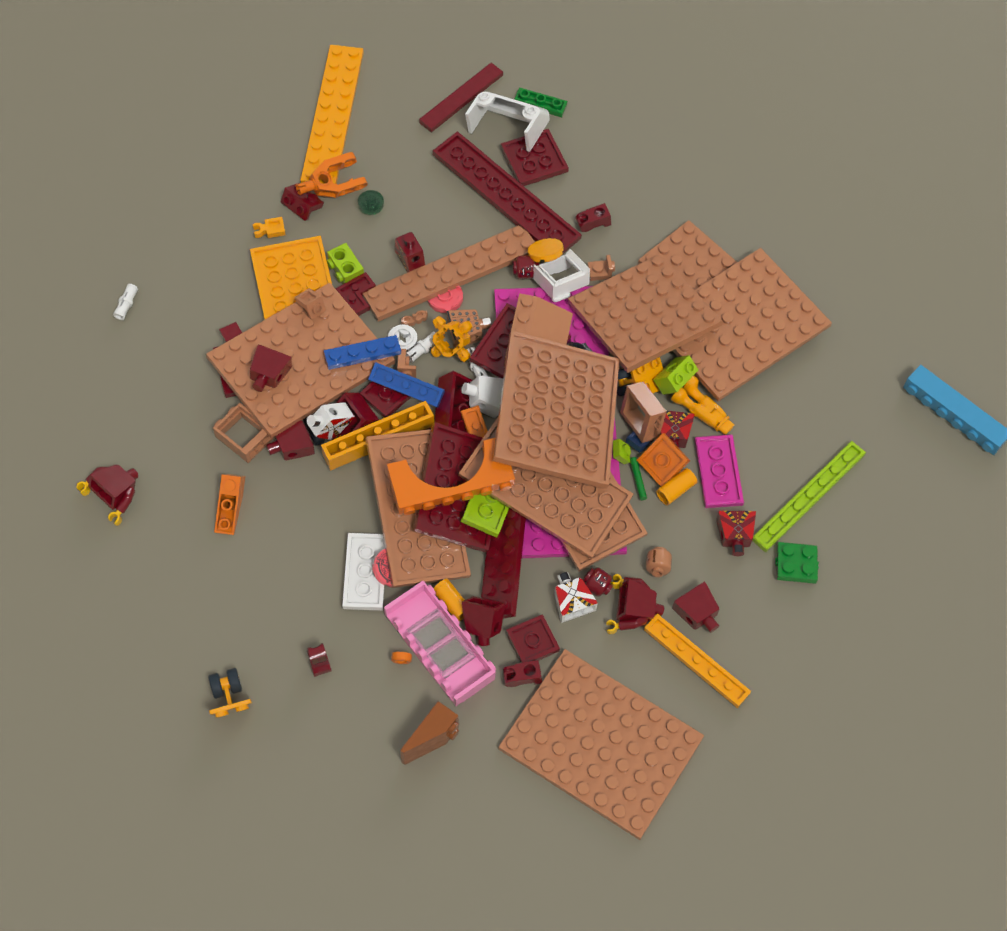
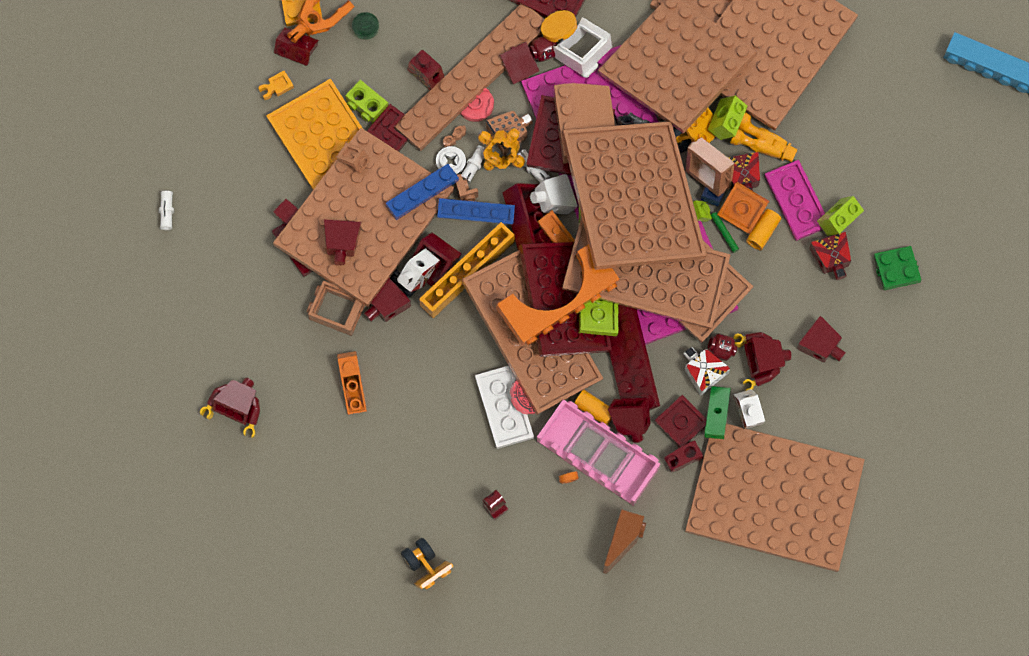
camera: 15 degrees left, 10 degrees up
(383, 399) = (456, 231): dark red plate -> none
(498, 272) = (519, 62): none -> dark red piece
(570, 642) = (717, 412): none -> green tile
(601, 269) = (618, 25): nougat bracket -> none
(603, 649) = (749, 409): none -> white torso
(658, 561) = (771, 309): nougat head -> none
(697, 660) = (836, 391): light orange plate -> none
(755, 495) = (840, 215): none -> lime brick
(808, 496) = (888, 198): lime tile -> none

